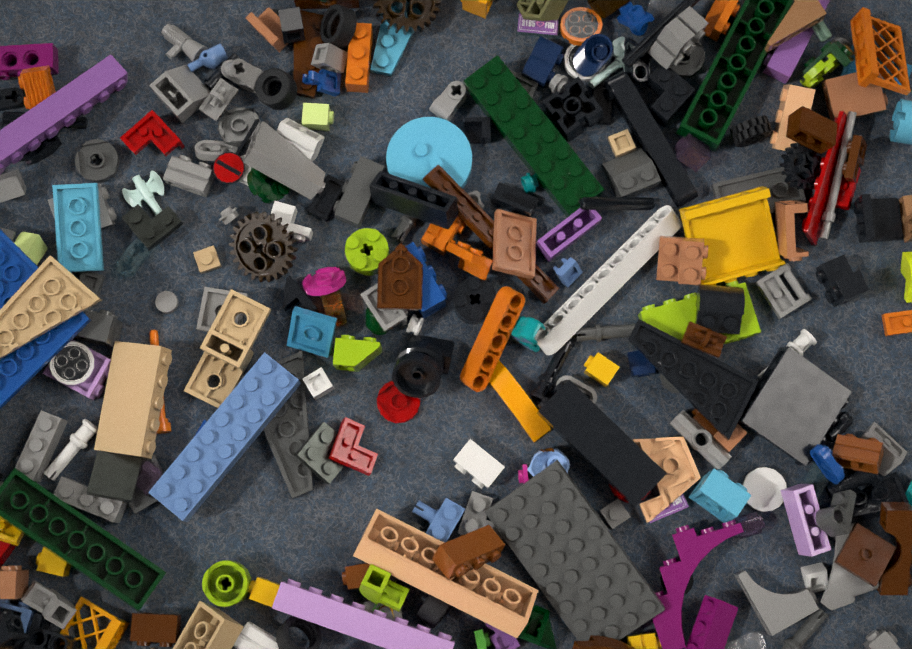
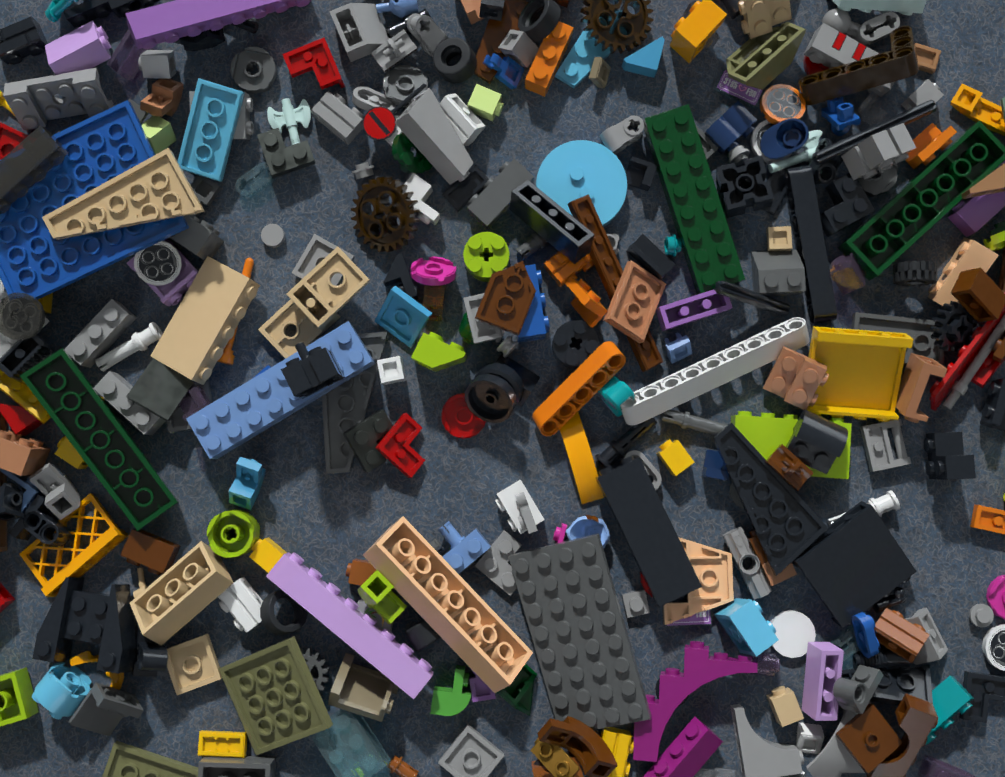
camera: 20 degrees right, 5 degrees up
(24, 214) = (164, 98): none -> nougat brick
(207, 259) = (327, 207): tan plate -> none
(222, 533) = (247, 483): none -> dark azure brick
(250, 407) = (313, 372): none -> black brick
(409, 54) = (599, 72): none -> dark tan tile
(446, 29) = (645, 60): none -> dark azure slope
(468, 552) = (477, 593): dark orange brick -> none
(488, 471) = (526, 520): none -> light grey plate
(781, 555) = (784, 706): none -> tan brick

